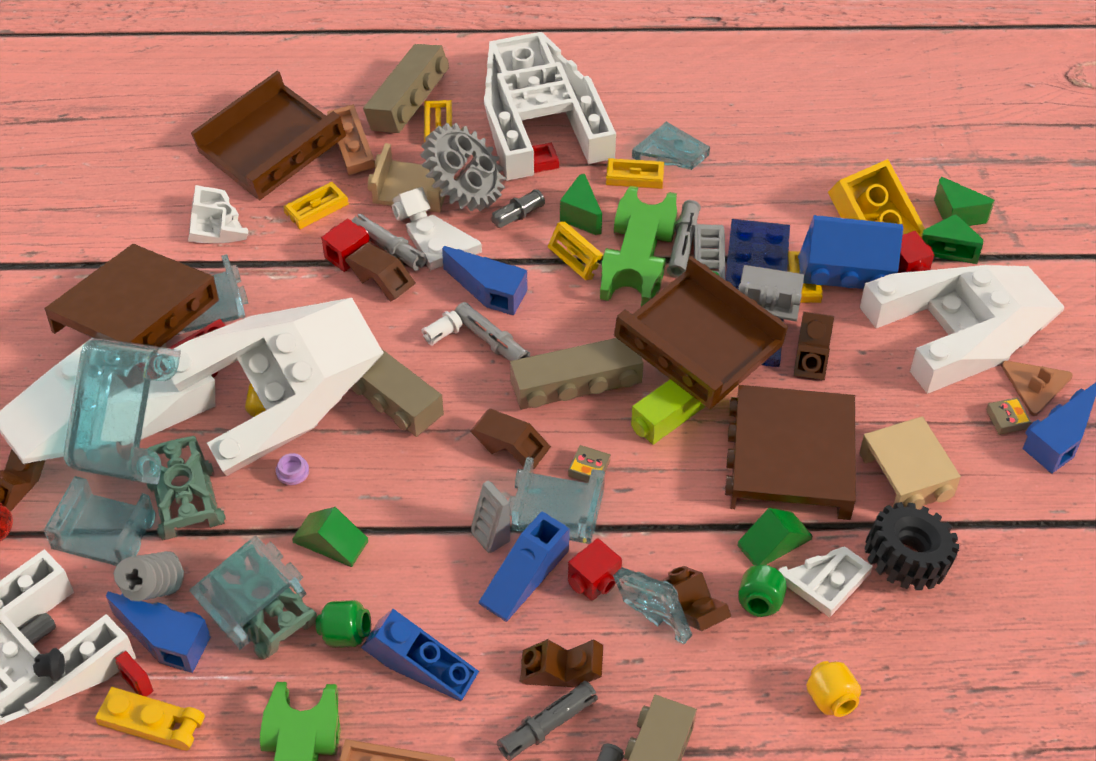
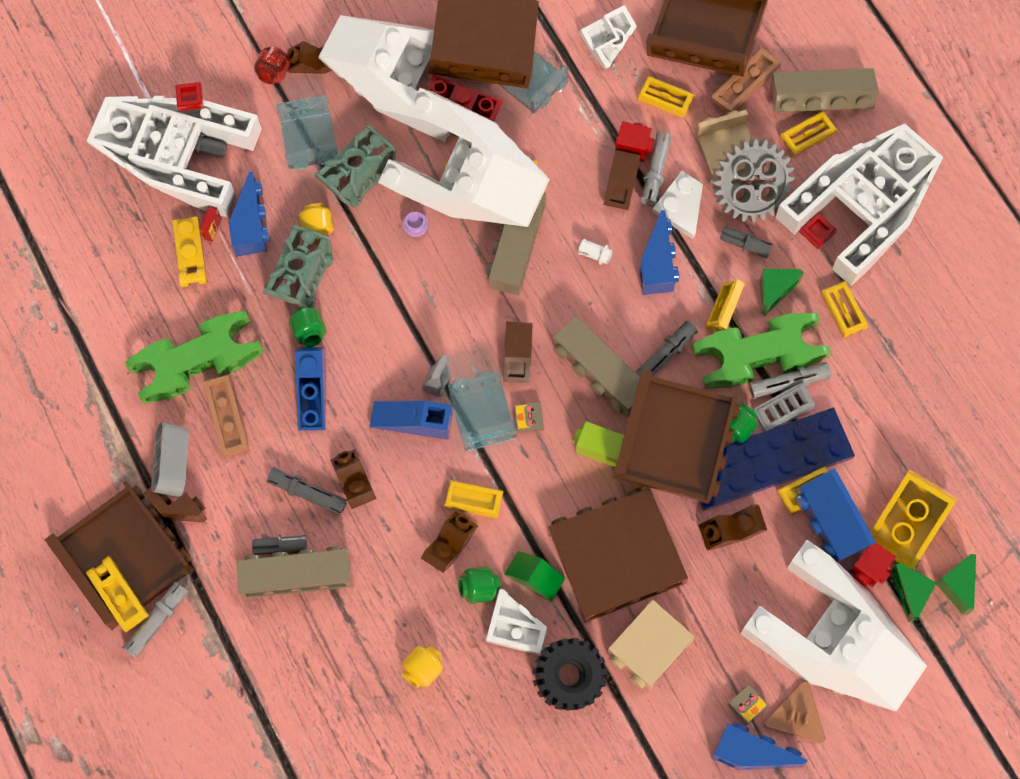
camera: 65 degrees right, 20 degrees up
(50, 664) = (175, 174): black piece -> none
(111, 408) = (388, 71): clear light blue windscreen -> none
(149, 575) = (275, 189): light grey piece -> none
(212, 554) = (316, 218): none -> yellow head
(245, 587) = (294, 252): clear light blue panel -> none
(332, 536) = (375, 280): green slope -> none
(411, 205) = (699, 164): white plate -> none
(470, 316) = (605, 298): light grey pin -> none
(589, 311) = (672, 345): none -> dark grey pin
(593, 570) = (435, 464): red brick -> none
(654, 599) = (428, 515): clear light blue wing -> none
(657, 553) = (473, 499): none -> yellow tile
(672, 147) = (891, 323): clear light blue wing -> none
(773, 290) = (760, 470): light grey hinge -> none

